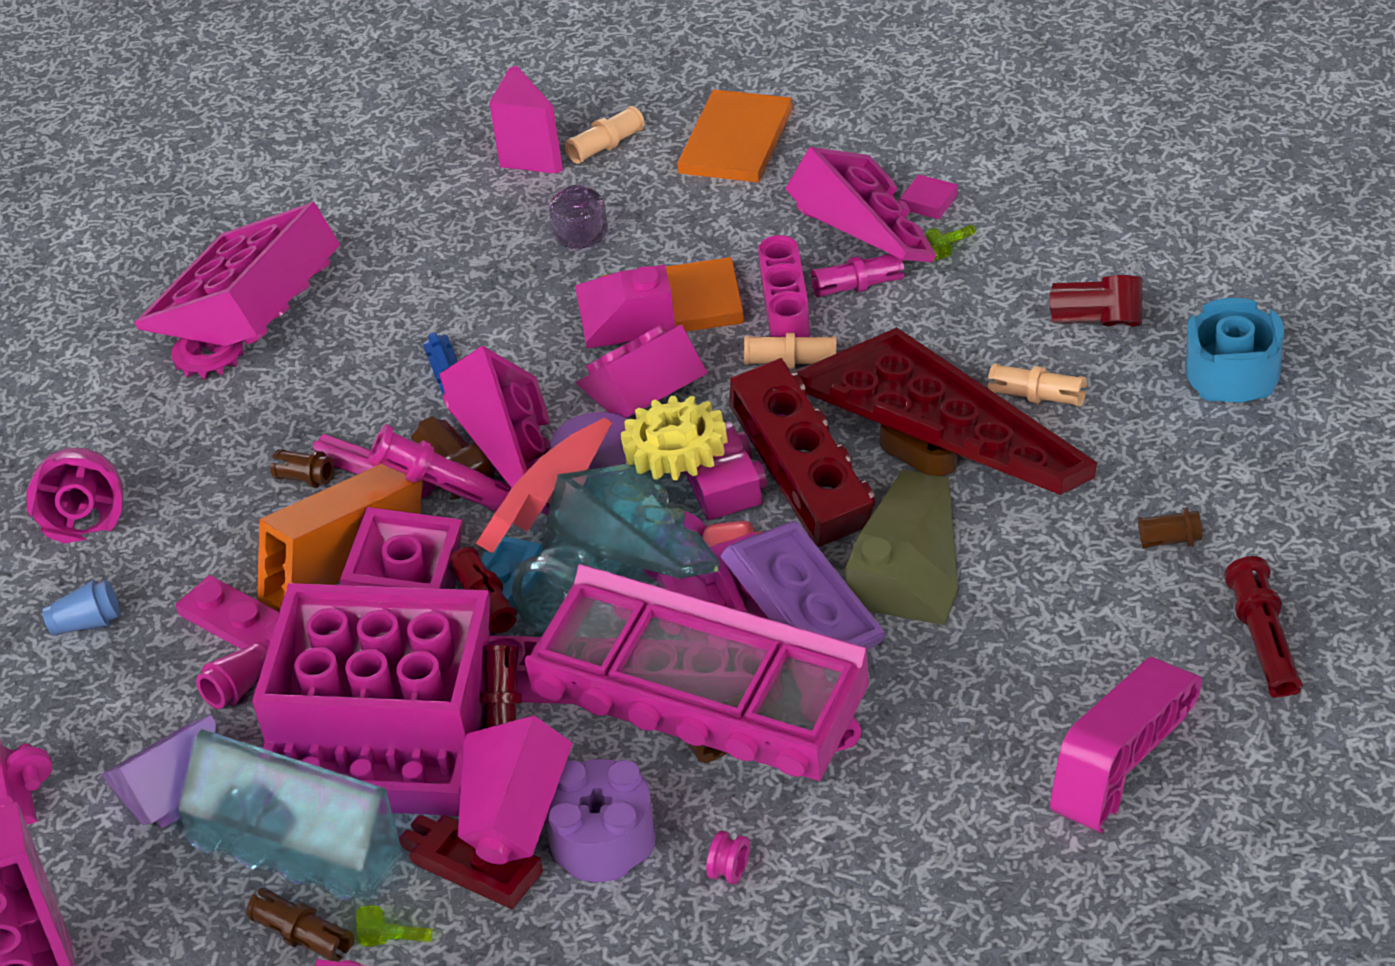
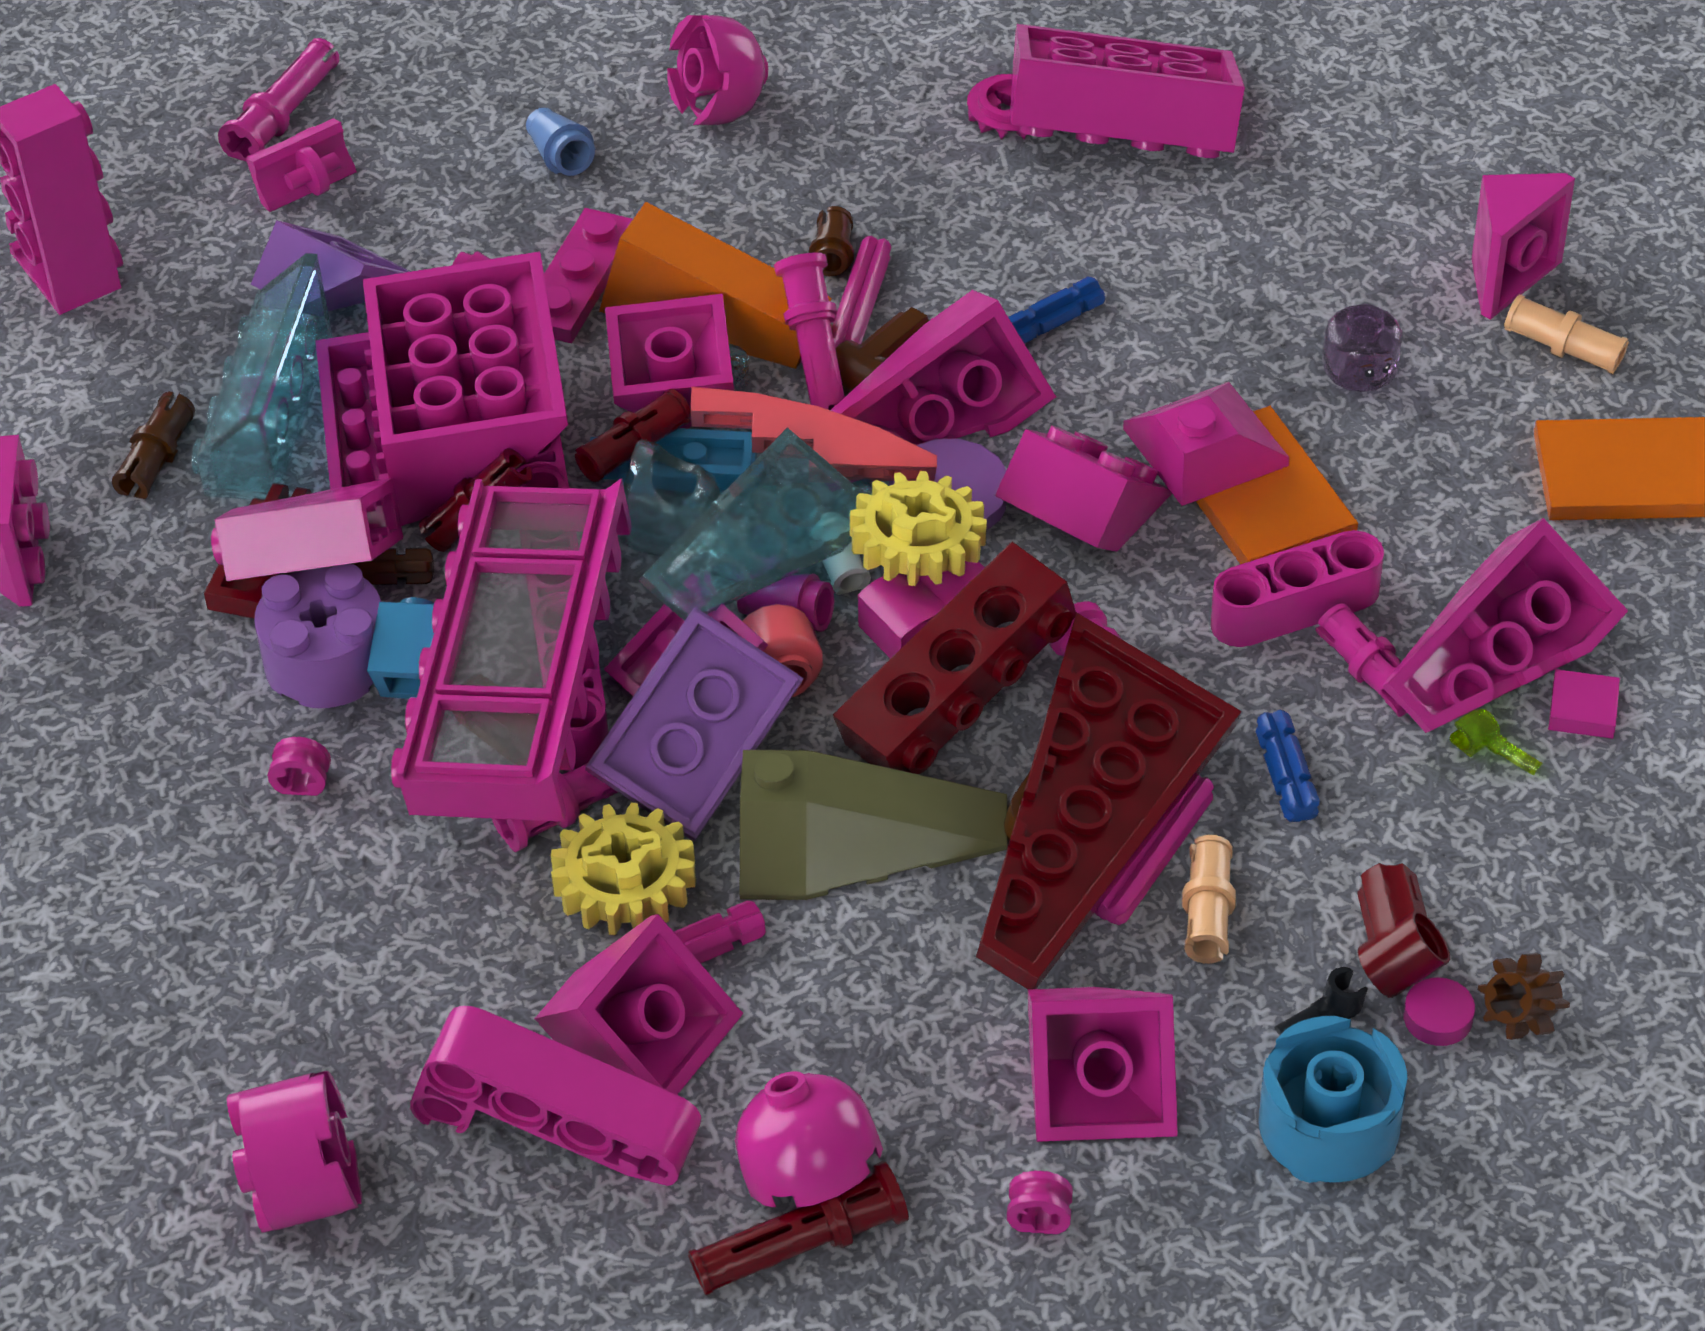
camera: 70 degrees right, 5 degrees up
(374, 930) = (161, 502): clear neon green hand -> none
(651, 749) = (397, 644): none -> dark azure brick
(789, 348) = (1189, 625): light nougat pin -> none
(933, 679) = (623, 868): none -> light yellow gear
(937, 330) = (1287, 766): none -> blue axle
(985, 646) = (716, 934): none -> dark pink axle
(1048, 681) = (643, 1008): none -> dark pink slope
(1136, 349) = (1333, 1002): none -> black hand
(1141, 881) = (294, 1151): none -> dark pink brick
(1158, 265) = (1523, 996): none -> reddish brown gear
(1161, 306) = (1439, 1011): none -> dark pink tile
(1162, 453) = (1102, 1063): none -> dark pink slope
(1170, 529) = (964, 1097): reddish brown pin -> none
(1205, 600) = (805, 1139): none -> dark pink cylinder
(1272, 505) = (1039, 1202): none -> dark pink bush

